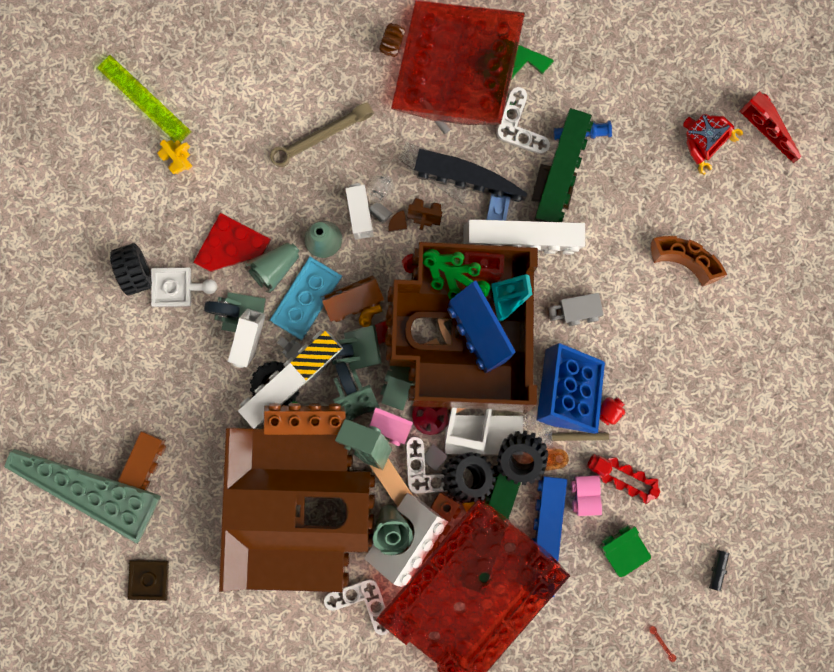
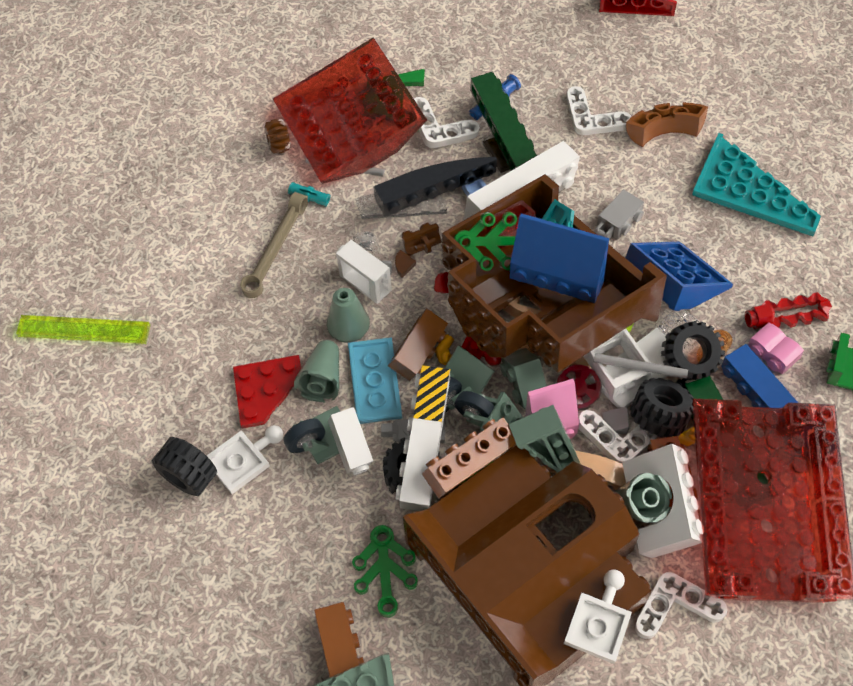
camera: 35 degrees left, 25 degrees down
(178, 154) = (140, 349): yellow hips -> none
(208, 433) = (384, 566): none -> green plant
(289, 588) = (598, 624): none -> white plate
(378, 109) = (313, 195): none -> teal pin
(475, 442) = (640, 365): none -> light grey bar
(579, 436) = (725, 306): dark tan bar -> none
(611, 410) = (725, 265): red head -> none
(637, 210) = (591, 121): none -> white beam
(692, 357) = (739, 184): none -> teal wing
(707, 136) = (594, 37): red torso -> none

